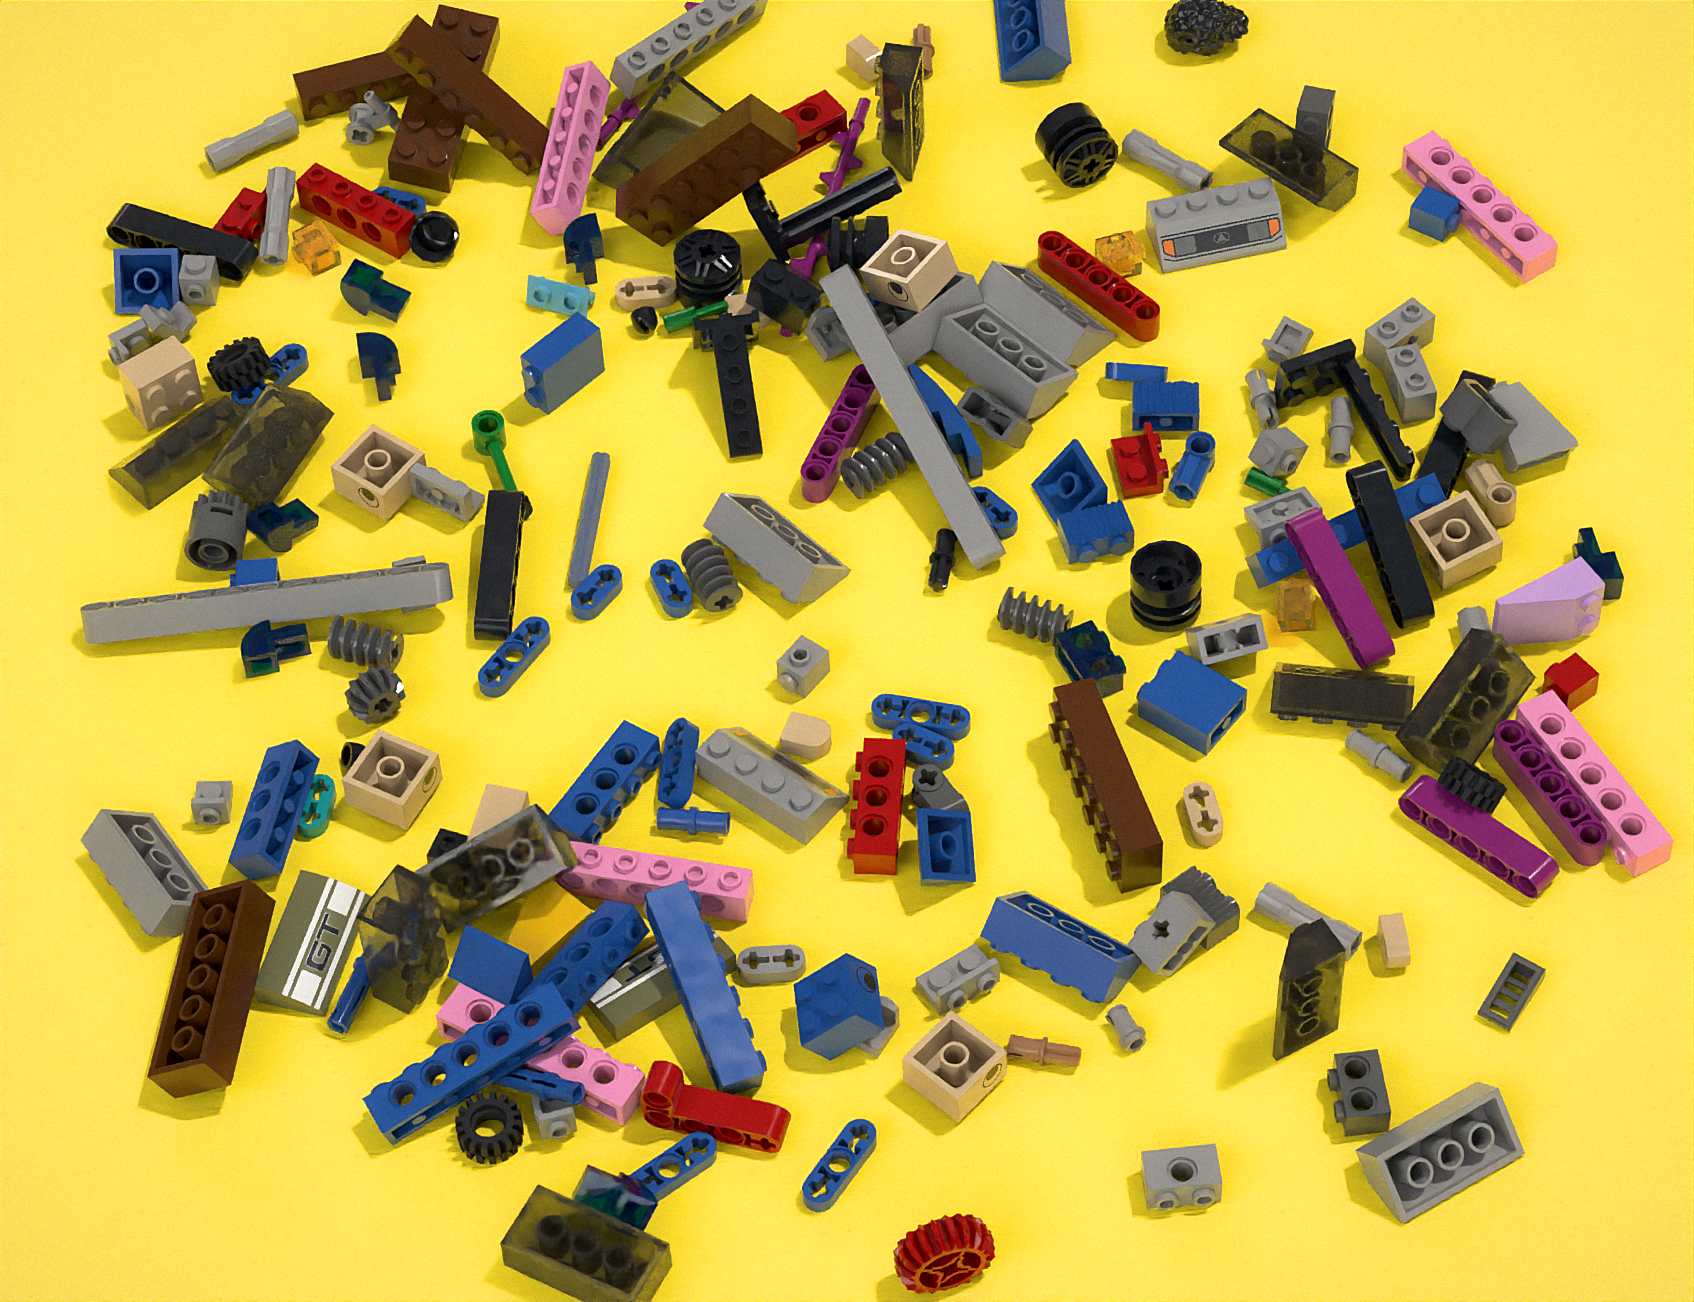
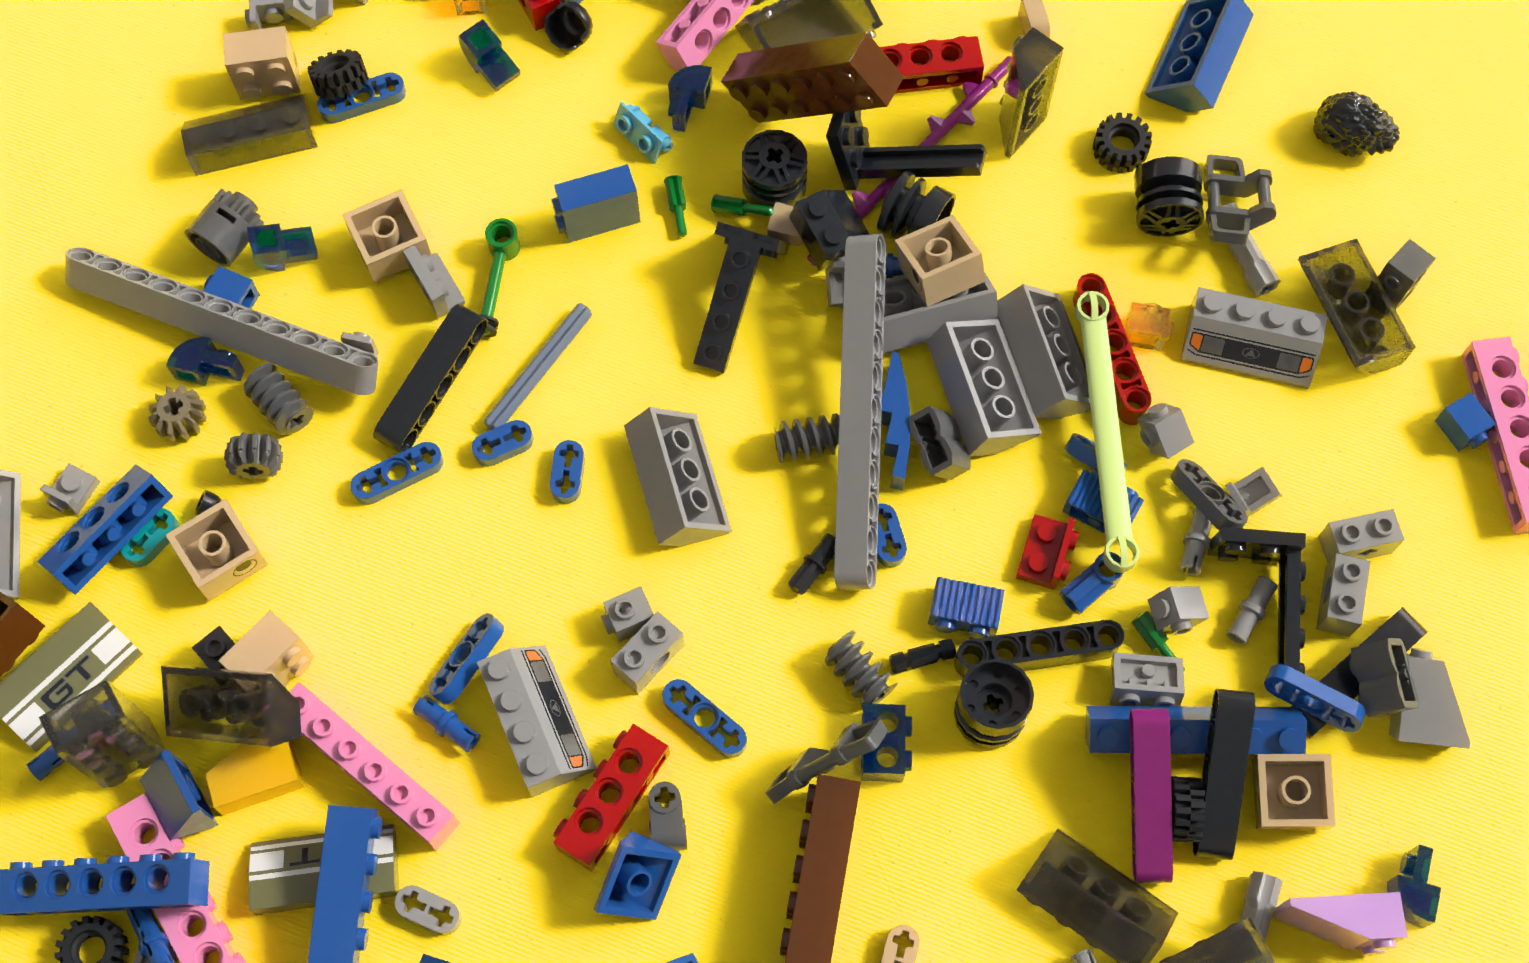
camera: 25 degrees right, 15 degrees up
(268, 445) = (309, 166): clear smoke slope -> none
(274, 697) = (173, 425): none -> dark tan gear
(380, 360) = (454, 126): brick -> none
(593, 953) = (262, 827): blue brick -> none
(607, 771) = (369, 649): blue brick -> none
(629, 337) = (676, 201): none -> green axle
(644, 319) = (698, 190): black hinge -> none
(645, 292) = (716, 162): tan beam -> none
(711, 575) = (600, 480): dark grey piece -> none
(806, 736) = (592, 686): tan piece -> none
(839, 436) = (790, 400): magenta beam -> none
(839, 685) = (647, 652): none -> light grey brick
(922, 38) = (1089, 34): medium nougat axle -> none
(924, 745) = (695, 746): blue beam -> none
(1004, 137) = (1127, 128): none -> black tyre
(1067, 655) = (852, 743): none -> dark grey bar
(1070, 483) = (968, 548): blue slope -> none
(1081, 586) = (922, 656): none -> black axle
(1119, 113) = (1237, 186): none -> dark grey bar
(1135, 342) = (1106, 432): none -> yellowish green piece
(1184, 324) = (1165, 430): none -> light grey brick
(1191, 525) = (1052, 639): none -> black beam
(1191, 702) = (951, 835): blue brick -> none
(1226, 638) = (1019, 788): light grey brick -> none
(1247, 357) = (1207, 495): none -> dark grey beam
(1295, 605) = (1104, 783): clear yellow brick -> none
(1379, 587) = (1187, 809): none -> black tyre
(1441, 468) = (1333, 708): none -> blue beam
(1493, 492) = (1360, 749): tan piece -> none

